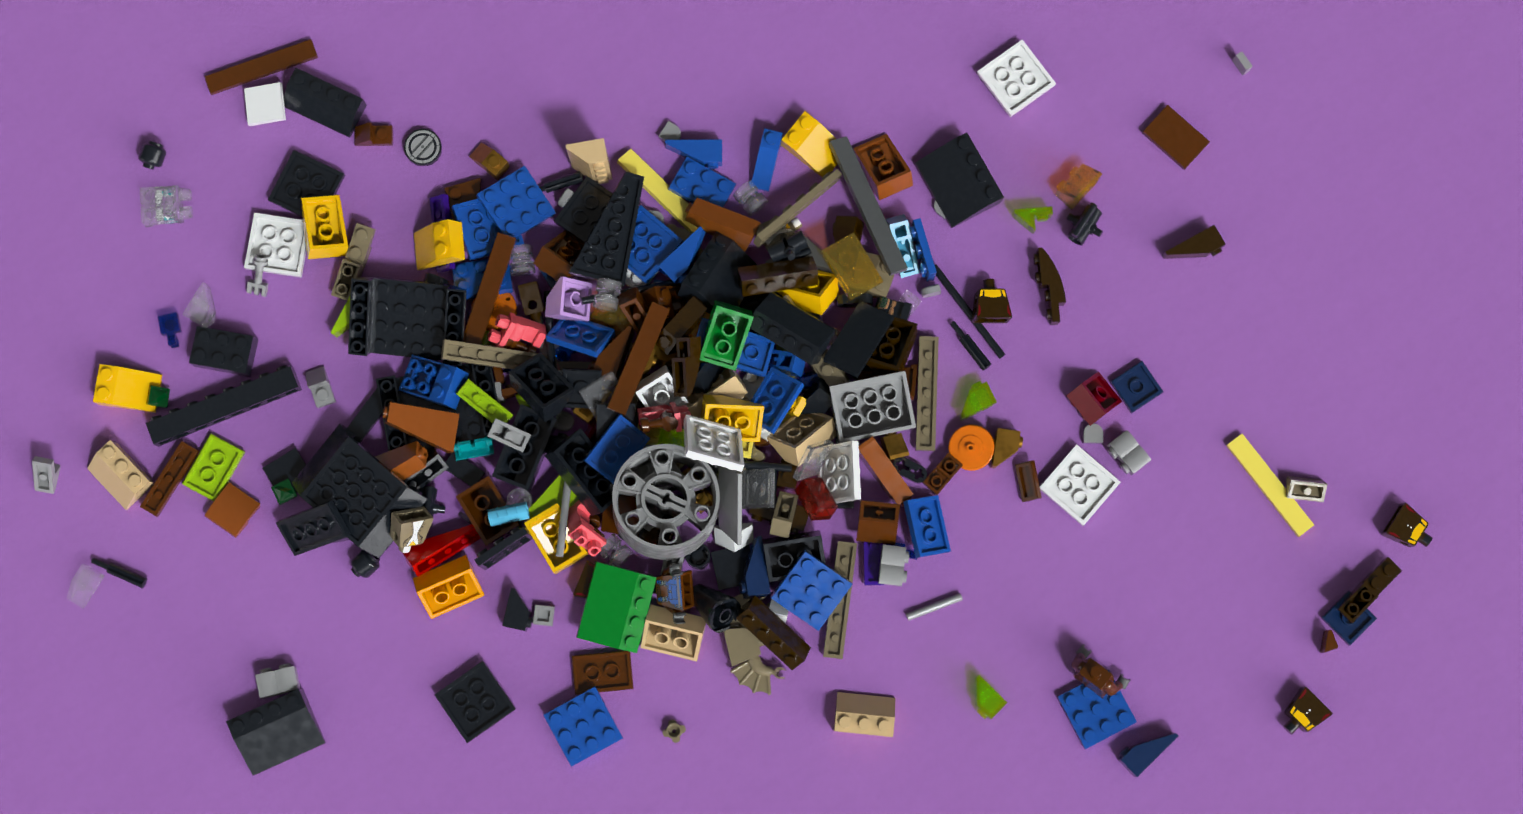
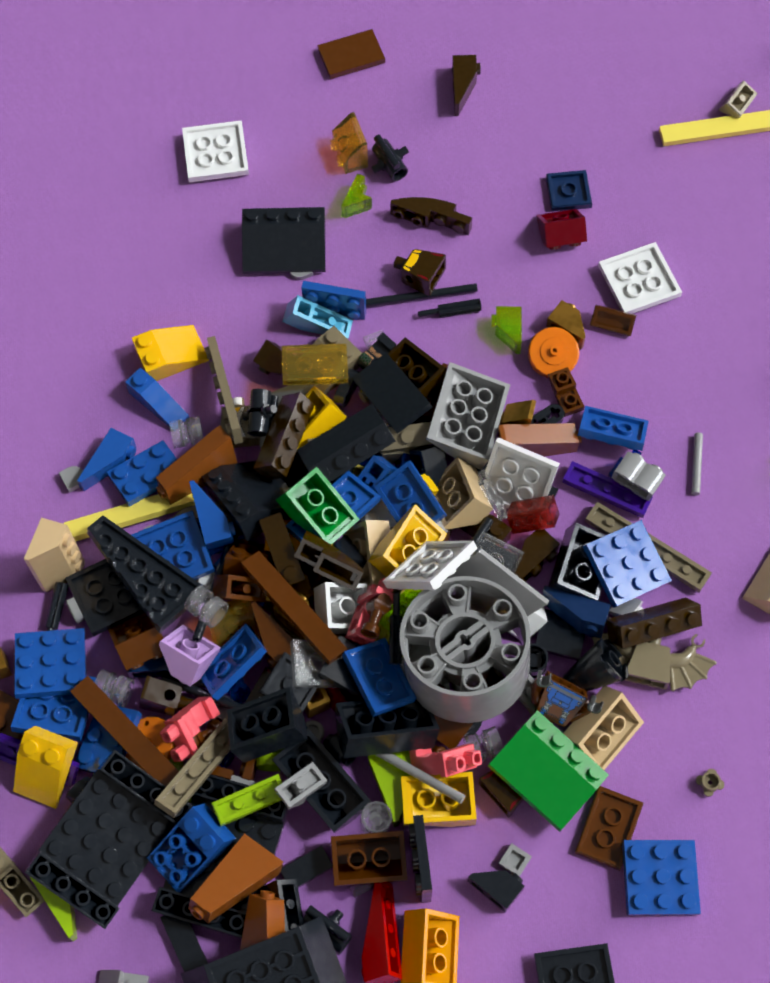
camera: 60 degrees left, 15 degrees down
(410, 527) = (344, 952): dark tan torso -> none
(474, 448) = (290, 841): teal hinge -> none
(508, 514) = (387, 832): medium azure axle -> none
(661, 439) = (395, 654): none -> black axle
(783, 514) = (537, 550): dark tan slope -> none
(868, 206) = (261, 326): dark grey tile -> none
(878, 522) = (587, 466): reddish brown slope -> none
(883, 166) = (230, 299): dark orange slope -> none
(927, 393) = (446, 352): dark tan plate -> none
(931, 291) = (377, 315): light grey tile -> none
(1093, 434) = (595, 246): light grey tile -> none
(1128, 452) = (630, 223): light grey brick -> none

